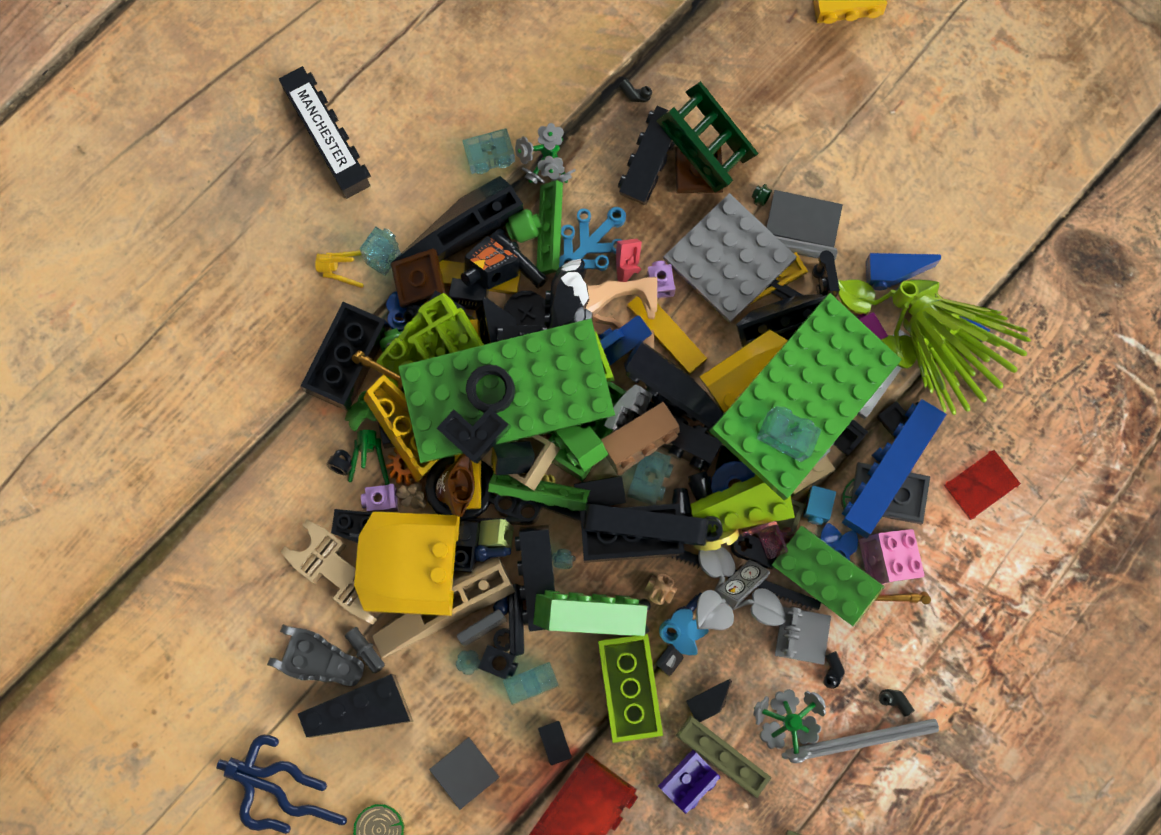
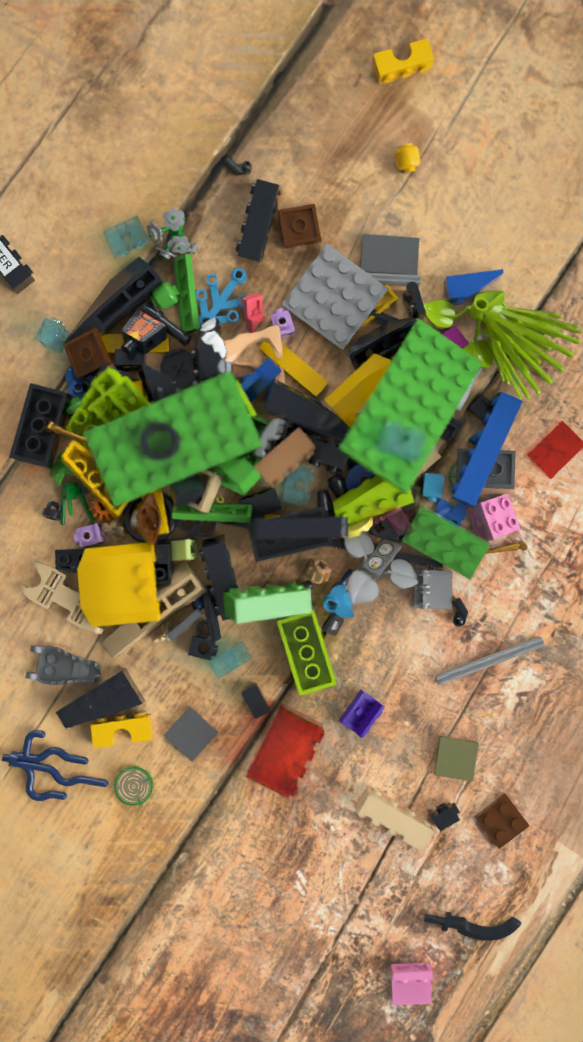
camera: 15 degrees left, 10 degrees up
(329, 262) = (13, 351): yellow plant -> none
(354, 751) = (138, 726): none -> yellow arch
(365, 650) = (98, 654): dark grey axle -> none
(449, 636) = (161, 633): none -> tan plant
(463, 657) = (180, 645): clear light blue plate -> none
(477, 439) = (154, 484): black panel -> none
(483, 553) = (178, 566): dark blue piece -> none
(563, 559) = (240, 560): clear light blue plate -> none
(694, 149) = (291, 210): dark green fence -> none
(710, 701) = (368, 651): black slope -> none
(719, 529) = (351, 514): black bush -> none
(723, 756) = (384, 690): olive tile -> none
(761, 195) = (353, 239): dark green plate -> none
(804, 730) = (444, 660): light grey plant -> none
(840, 110) = (407, 158): none -> yellow head
(896, 698) = (510, 626): pearl dark grey arm -> none

